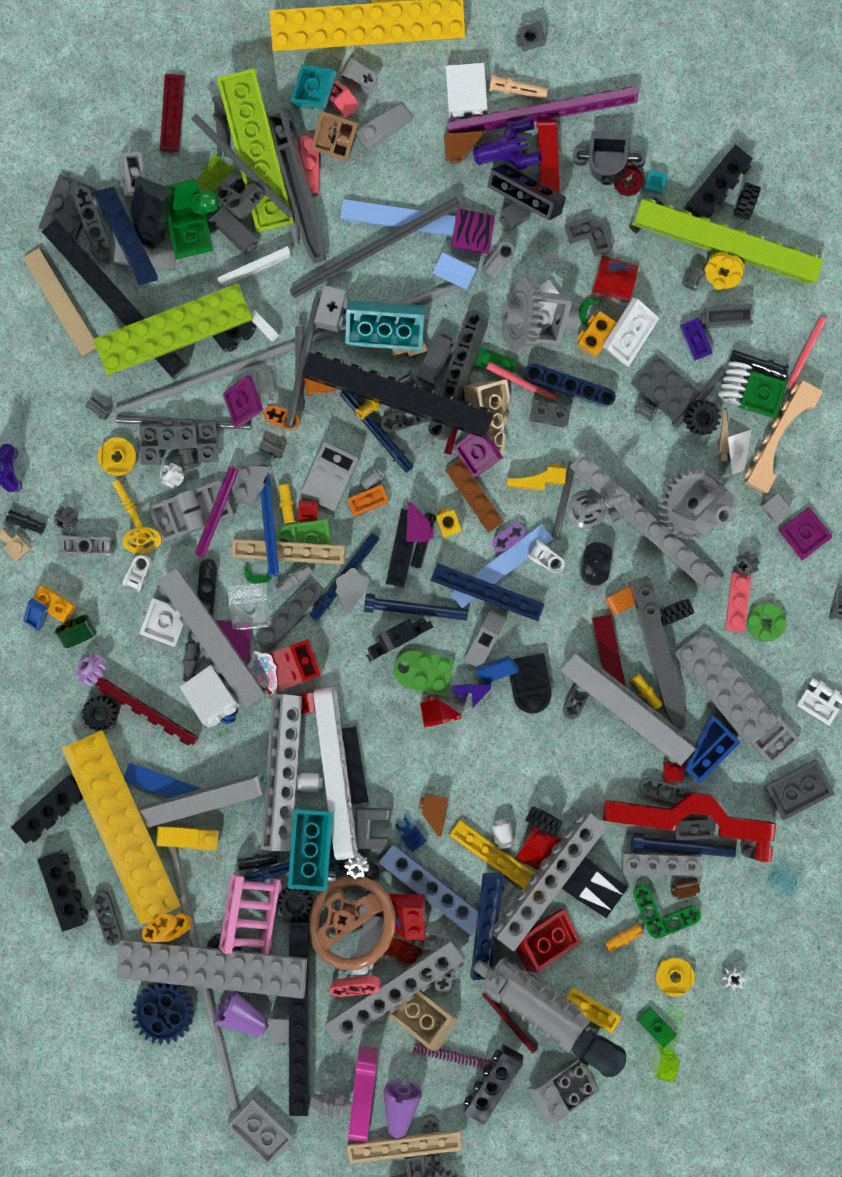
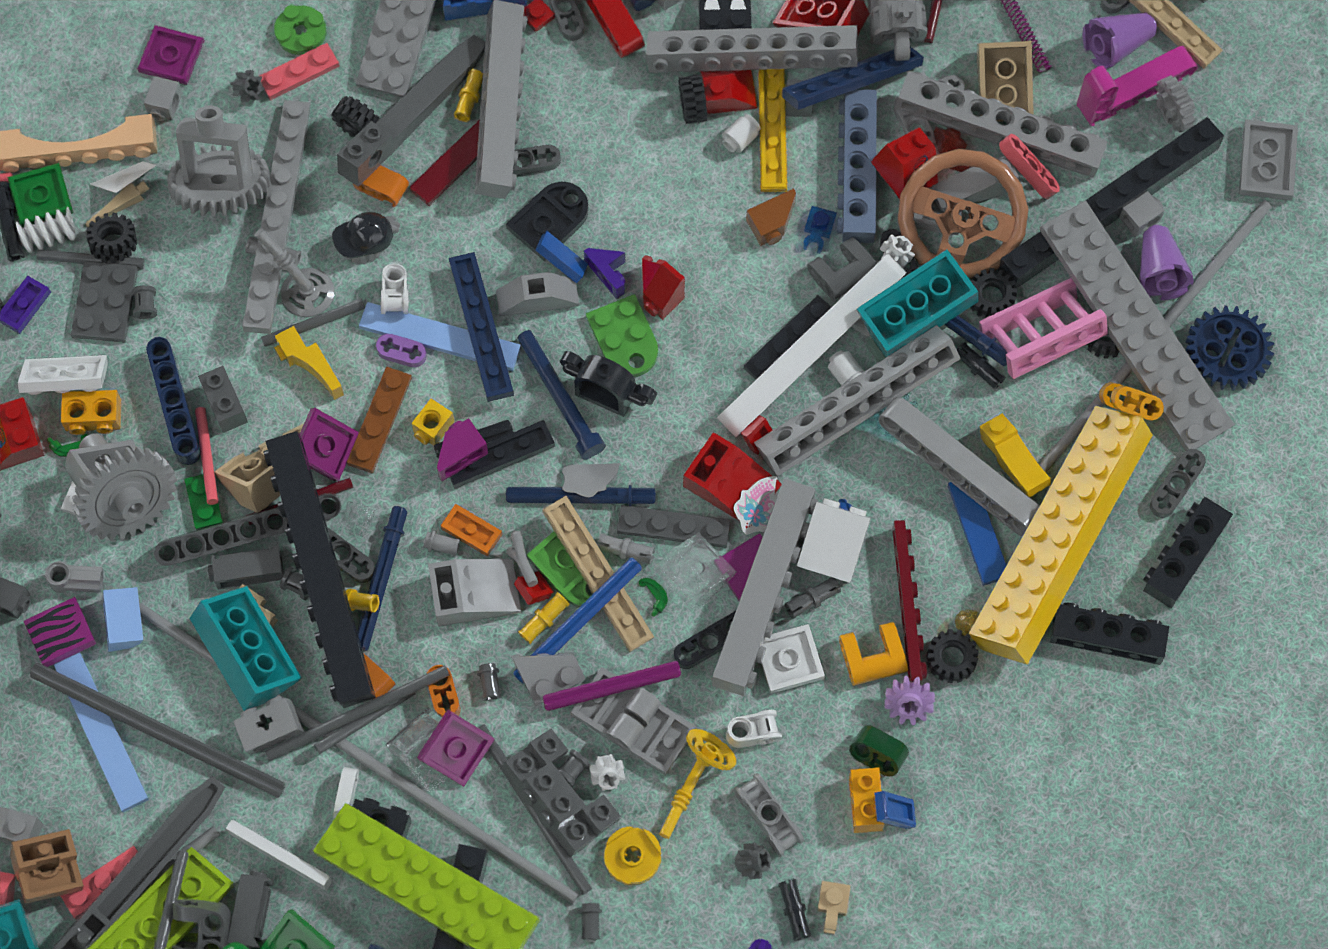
camera: 130 degrees left, 20 degrees down
(113, 736) = (965, 620): none -> clear yellow plate
(125, 666) = (878, 665): none -> light orange connector
(335, 516) = (518, 554): none -> light grey piece

